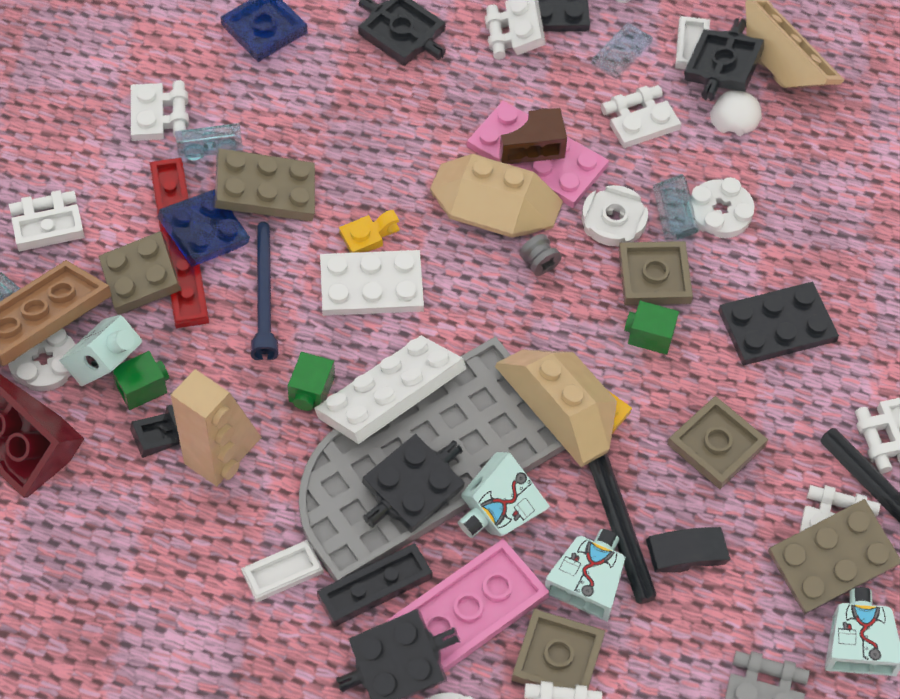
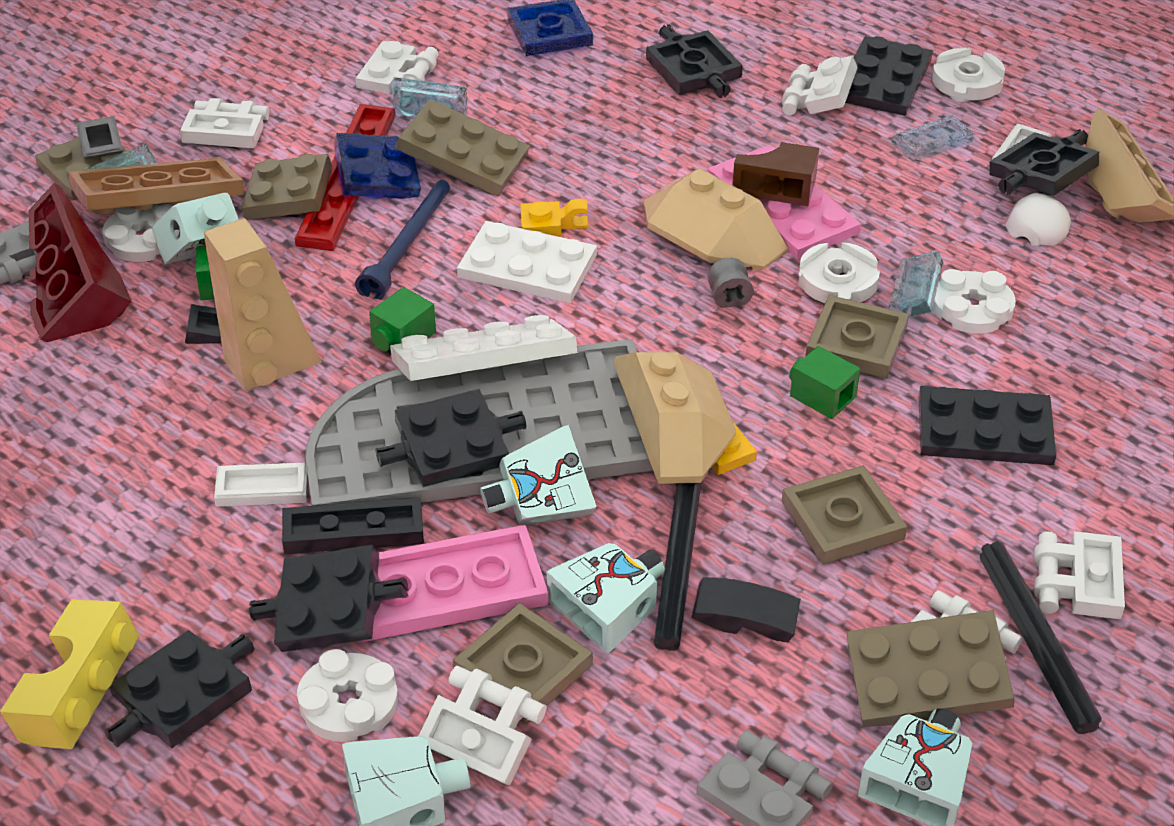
camera: 25 degrees right, 15 degrees down
(642, 124) = (922, 206): white plate -> none

